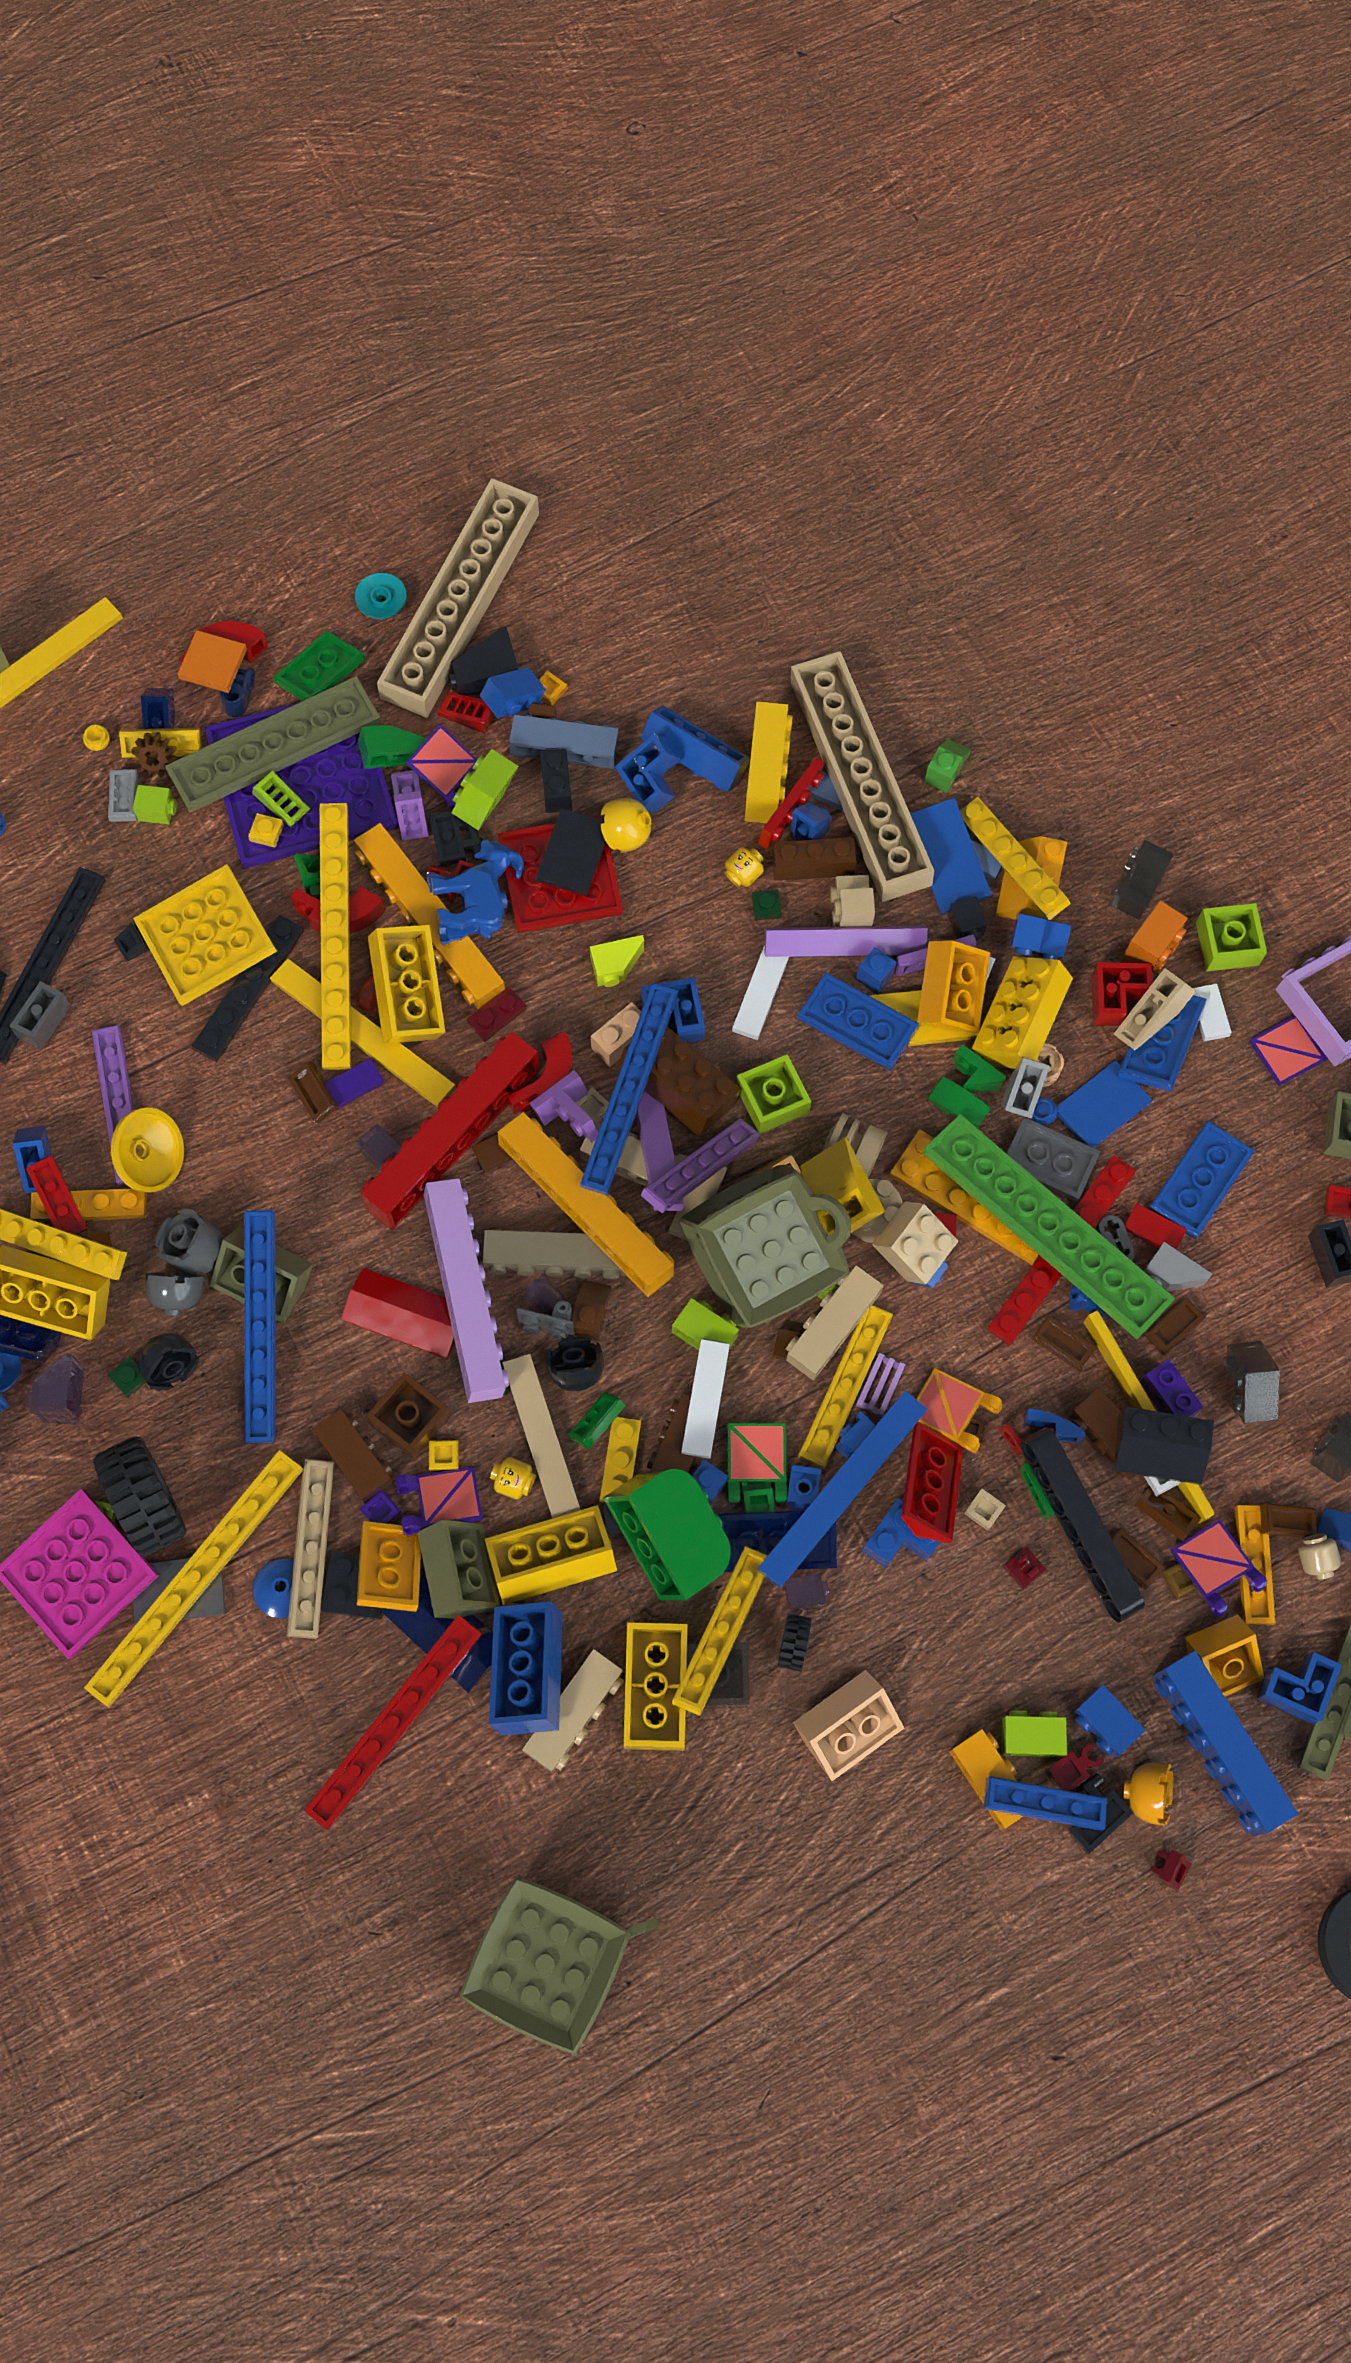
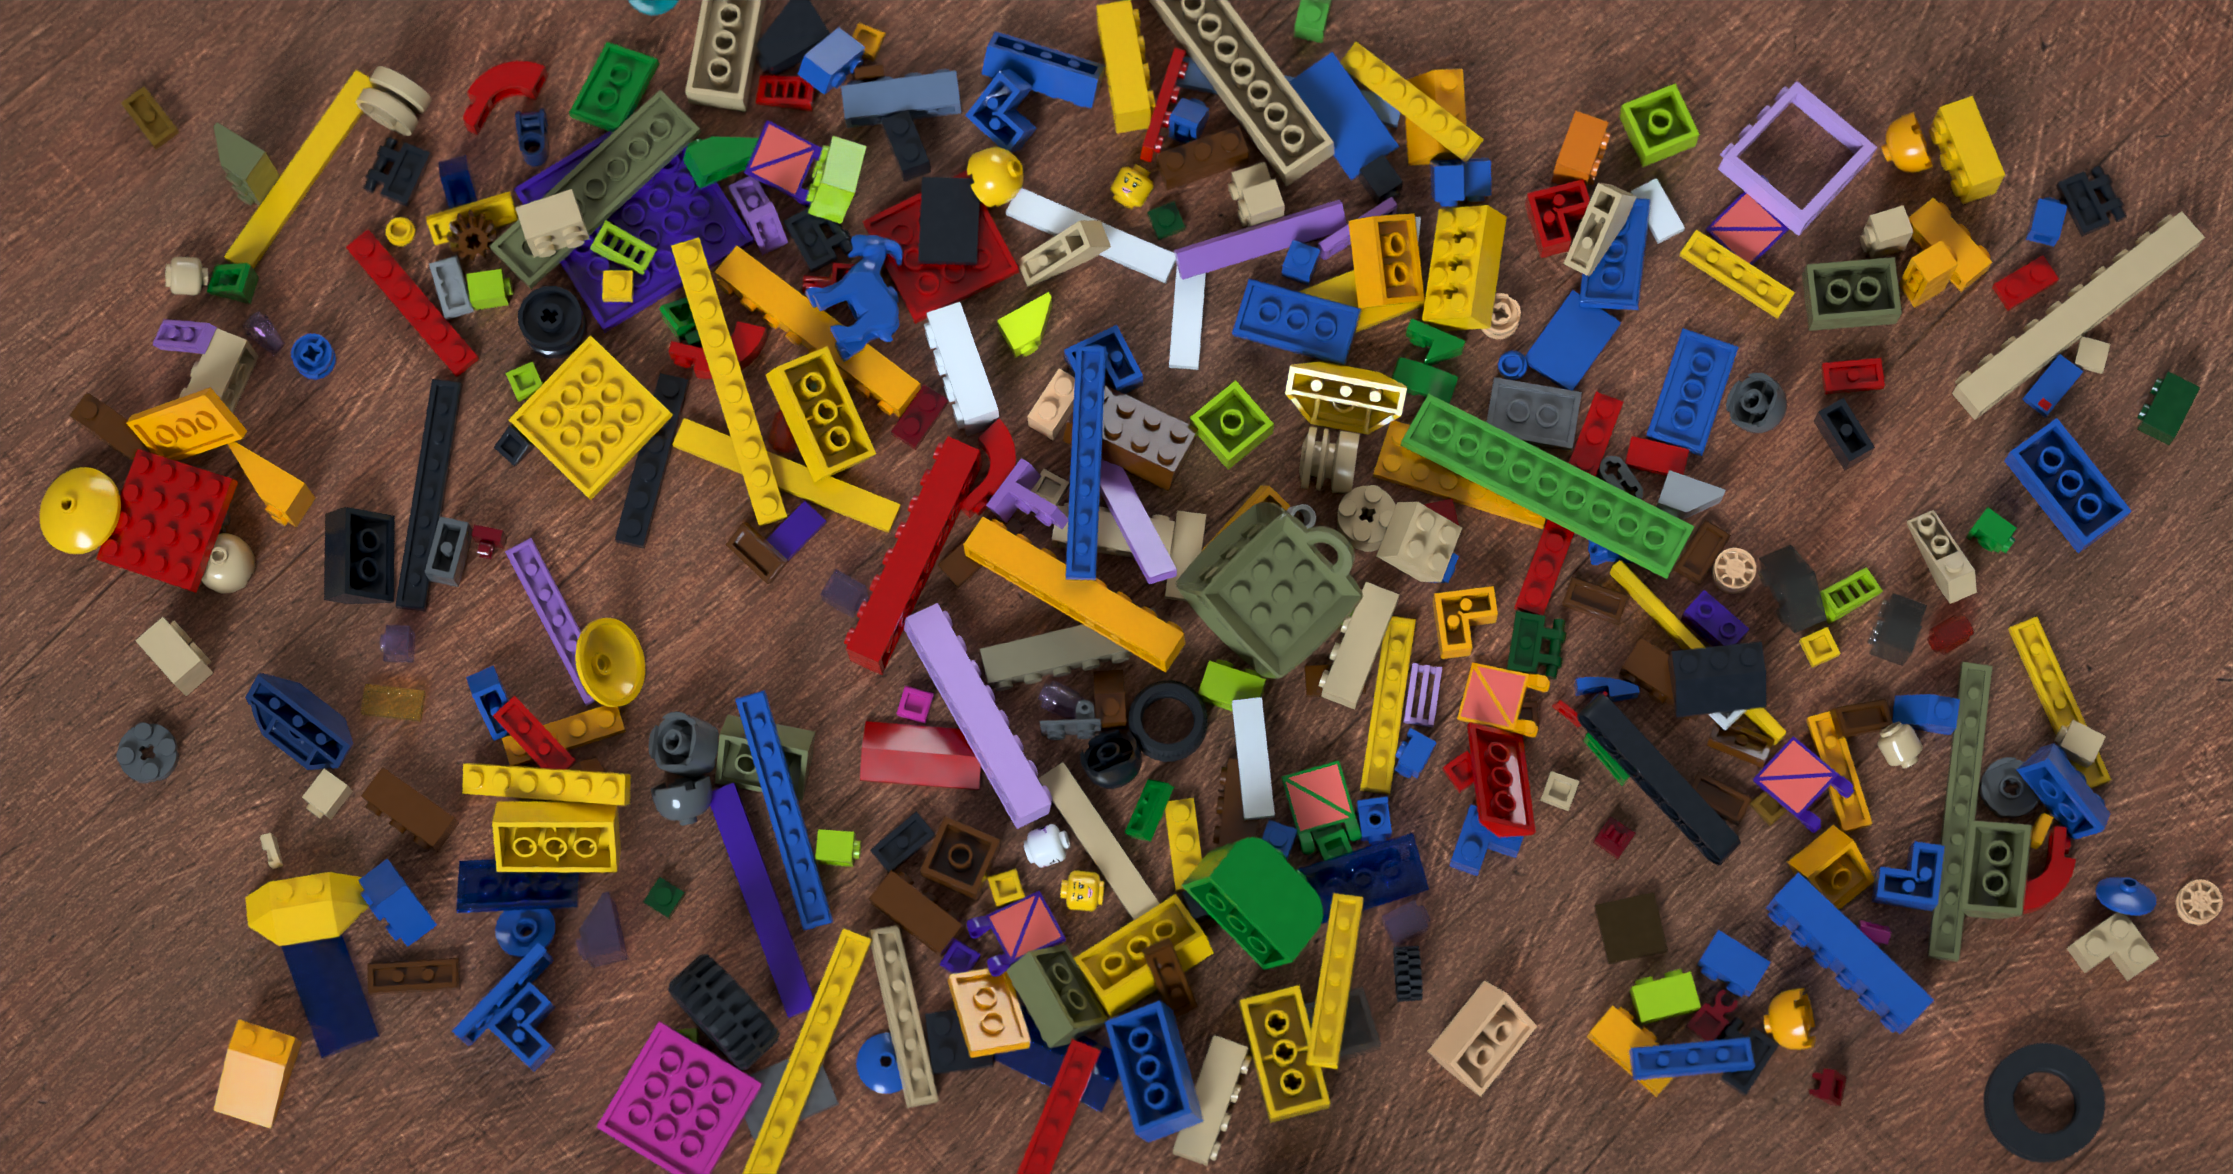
camera: 10 degrees left, 5 degrees up
(79, 1015) = (488, 539): none -> dark red tile
(86, 800) = (412, 303): none -> red plate
(115, 693) = (405, 174): none -> black plate
(125, 626) = (393, 100): none -> tan wheel
(158, 889) = (524, 381): none -> lime plate
(166, 1360) = (699, 870): black cylinder -> none
(198, 844) = (550, 305): none -> black wheel
(212, 661) = (501, 115): orange tile -> none
(215, 1404) = (761, 900): none -> dark purple tile
(222, 757) = (552, 224): none -> tan brick
(299, 1375) = (837, 848): none -> lime brick
(360, 1387) = (903, 842): none -> black plate
(412, 1265) = (915, 704): none -> dark pink tile
(492, 1426) = (1046, 845): none -> white head
(543, 979) = (960, 362): none -> white brick
(567, 1581) = (1169, 977): none -> reddish brown tile
(638, 1314) = (1174, 690): none -> black tyre
(668, 904) = (1064, 251): none -> tan slope
(697, 899) = (1124, 247): none -> white tile
(700, 1165) = (1181, 522): medium lavender tile -> none
(841, 1176) = (1327, 500): yellow slope -> none
(842, 1489) = (1414, 810): blue tile -> none
(882, 1097) = (1344, 396): none -> yellow wedge
(897, 1466) = (1460, 772): none -> red plate
(934, 1317) = (1456, 612): none -> light orange brick
(990, 1364) = (1526, 644): none -> dark green plate
(1018, 1659) = (1631, 928): none -> dark brown tile
(1025, 1087) = (1487, 348): light grey slope -> none
(1143, 876) = (1551, 81): clear smoke brick -> none
(1200, 1351) = (1734, 570): none -> light nougat wheel
(1255, 1730) = (1875, 932): none -> dark pink plate
(1261, 1204) = (1757, 403): none -> dark grey cylinder
(1264, 1443) = (1819, 647): none -> yellow plate
(1269, 1086) = (1737, 274): none -> yellow plate
(1287, 1410) = (1833, 604): none -> lime slope

